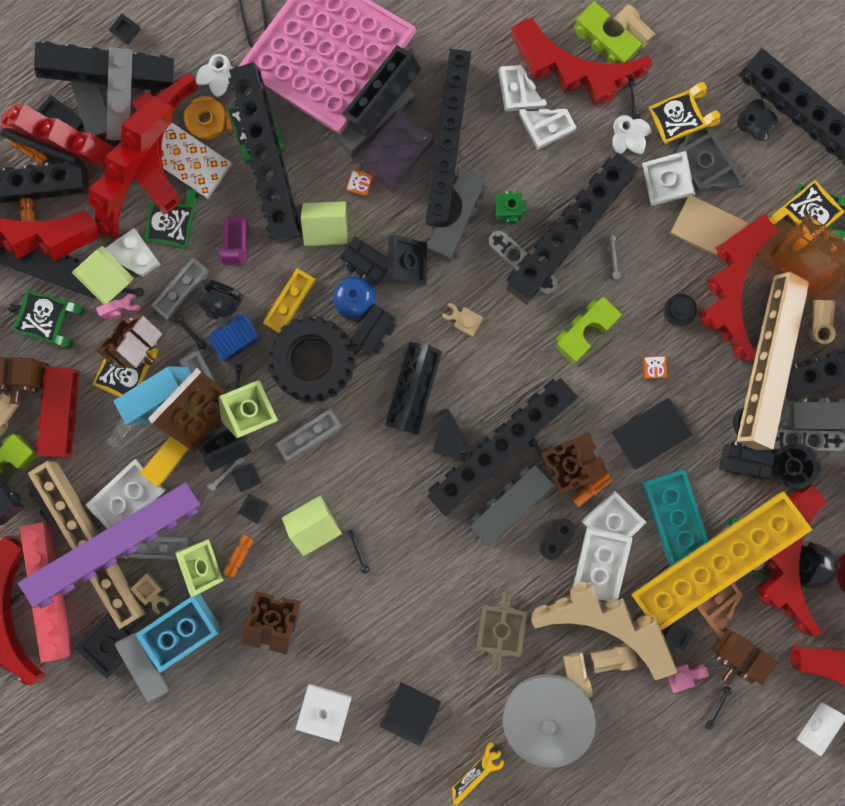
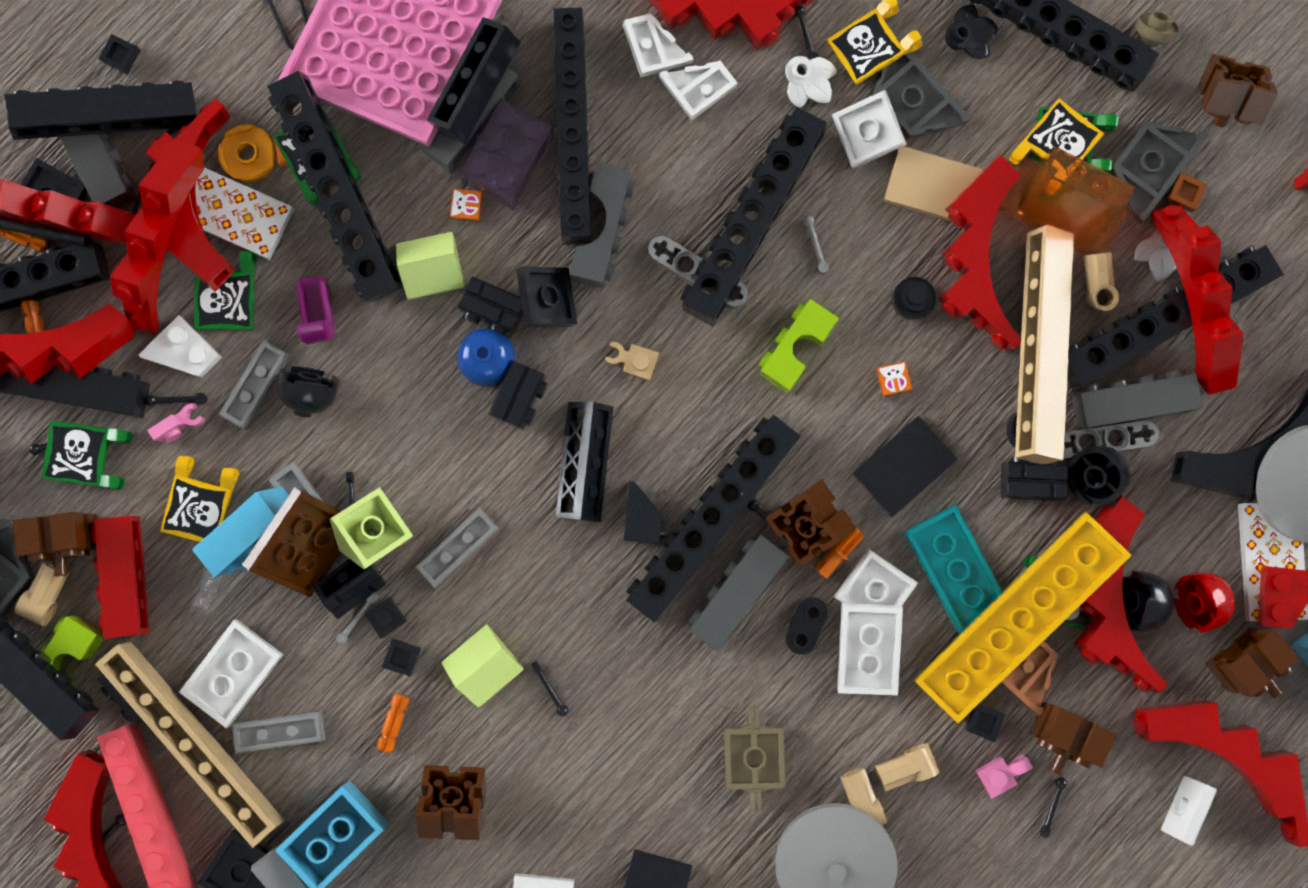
camera: 15 degrees left, 0 degrees up
(103, 275) = (149, 385): yellowish green slope -> none
(108, 546) = (219, 740): medium lavender brick -> none
(118, 91) = (126, 140): light grey plate -> none
(130, 342) = (201, 469): reddish brown brick -> none
(148, 591) = (283, 790): tan plate -> none
(164, 462) = (273, 617): yellow tile -> none
(179, 319) = (259, 424): black hinge -> none
(199, 567) = (343, 747): yellowish green slope -> none
(215, 77) = (250, 97): white plate -> none
(234, 337) = (336, 437): blue brick -> none
(289, 300) = (401, 376): yellow tile -> none
(290, 339) = (406, 435): black tyre -> none
(509, 207) = (667, 212): green brick -> none
(613, 617) = (896, 715): tan arch -> none

